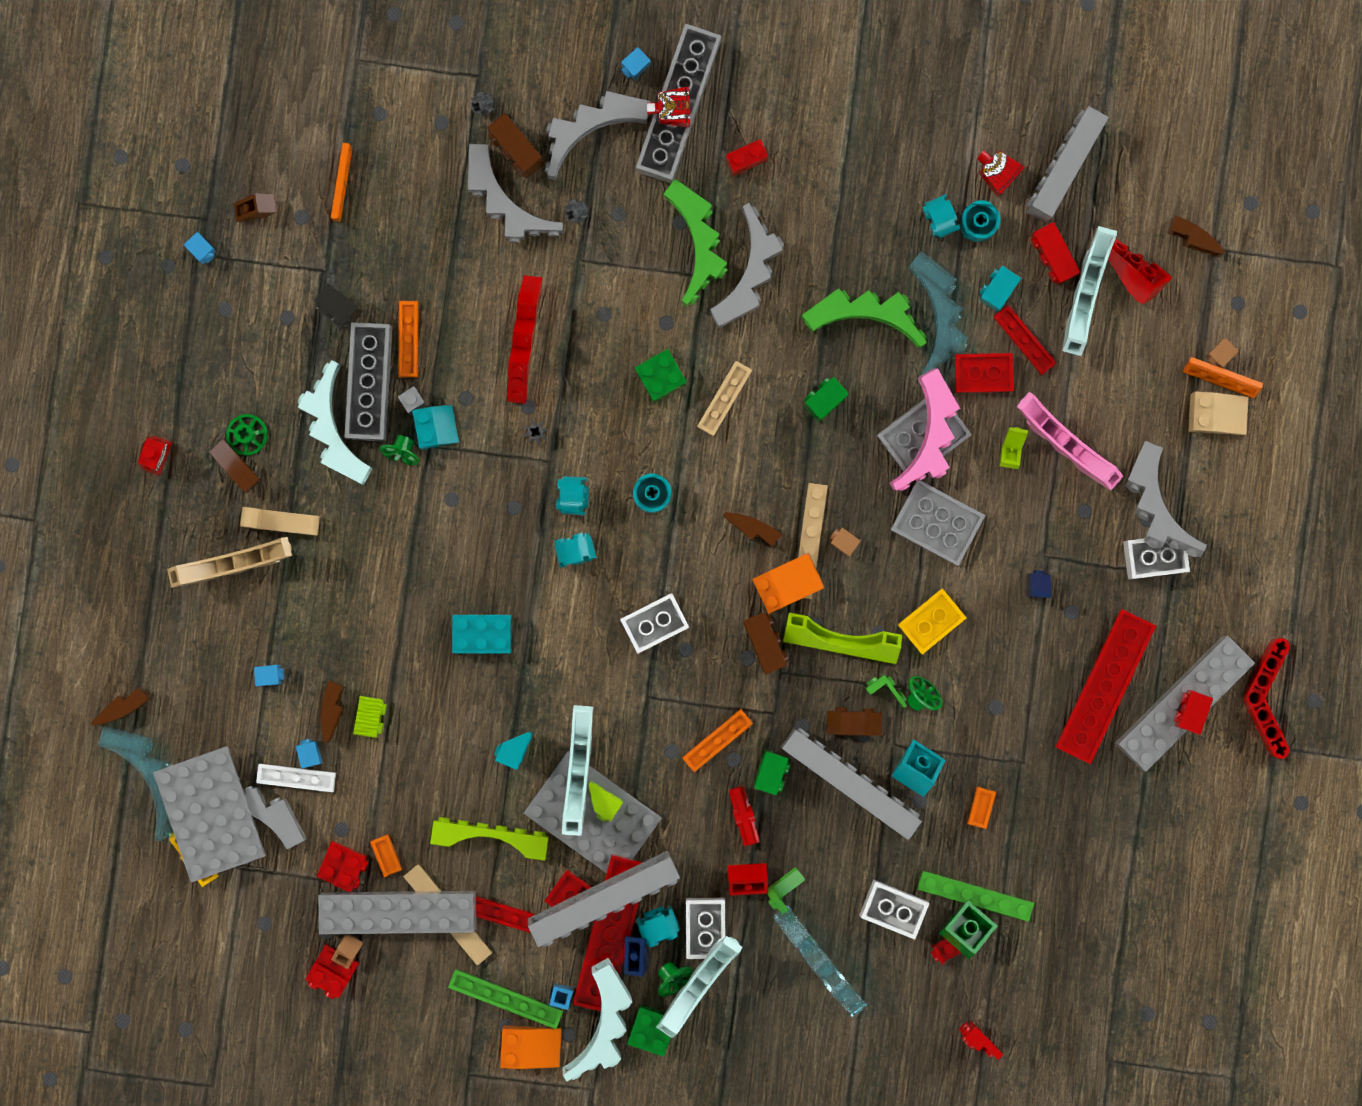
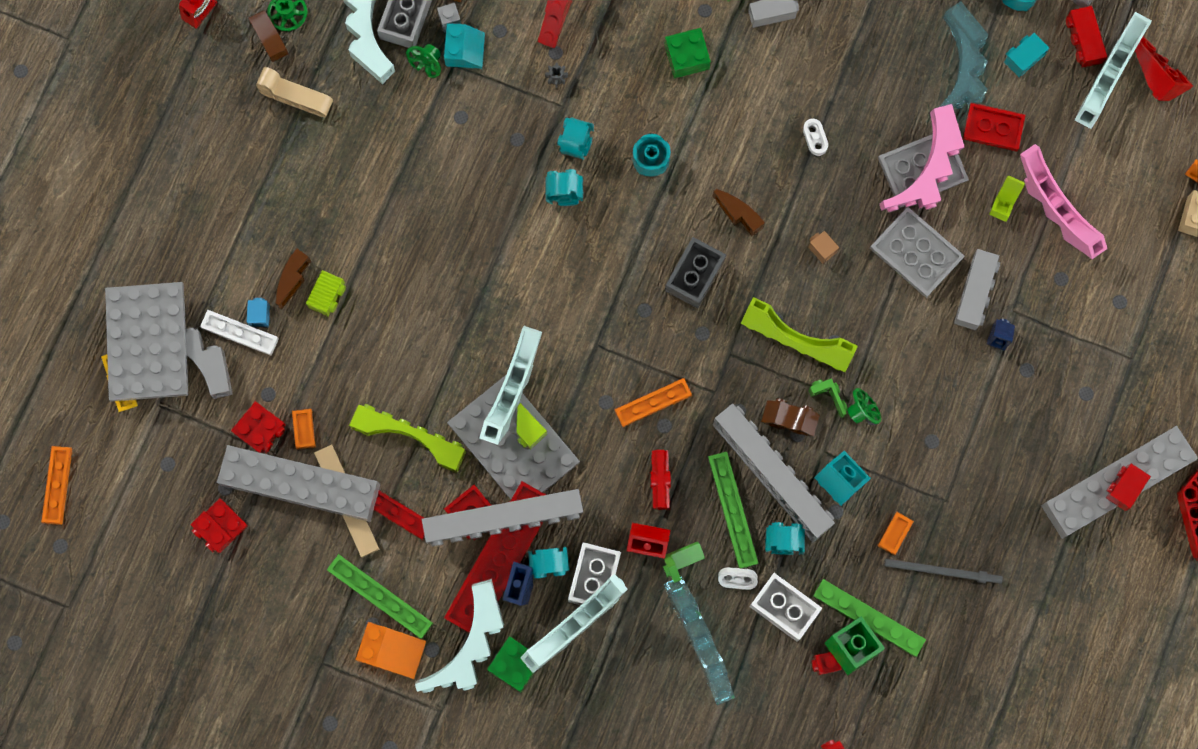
camera: 20 degrees right, 10 degrees down
(122, 707) = (95, 226): reddish brown slope -> none
(135, 749) = (96, 267): clear light blue arch -> none
(164, 973) = (56, 485): none -> orange tile
(230, 563) = (239, 119): tan arch -> none
(268, 675) = (241, 230): dark azure brick -> none
(347, 951) = (239, 508): medium nougat brick -> none
(481, 633) = (454, 243): teal brick -> none
(513, 750) = (455, 356): teal slope -> none
(561, 996) = (435, 606): dark azure brick -> none
(654, 623) = (622, 274): white brick -> none
(671, 976) = (547, 617): green wheel -> none
(724, 398) = (742, 89): tan plate -> none
(726, 602) = (695, 272): none -> dark grey brick
(765, 642) = (723, 318): reddish brown brick -> none
(771, 772) = (696, 443): green brick -> none
(788, 583) = (759, 269): orange slope -> none
(809, 430) = (815, 138): none -> white plate
(812, 522) = (789, 239): tan plate -> none
(821, 827) = (733, 510): none -> bright green plate
(826, 399) = (838, 110): green brick -> none
(842, 892) = (738, 578): none -> white plate
(878, 845) = (785, 539): none -> teal brick
(891, 312) = (897, 40): bright green arch -> none
(932, 621) = (889, 342): yellow plate -> none
(1004, 546) = (976, 289): none -> light grey brick
(1024, 340) = (1039, 108): red tile -> none
(1072, 828) = (981, 576): none -> dark grey bar
(1105, 686) = (1044, 447): red plate -> none
(1148, 561) = (1122, 334): white brick -> none
(1151, 506) = (1128, 284): light grey arch -> none

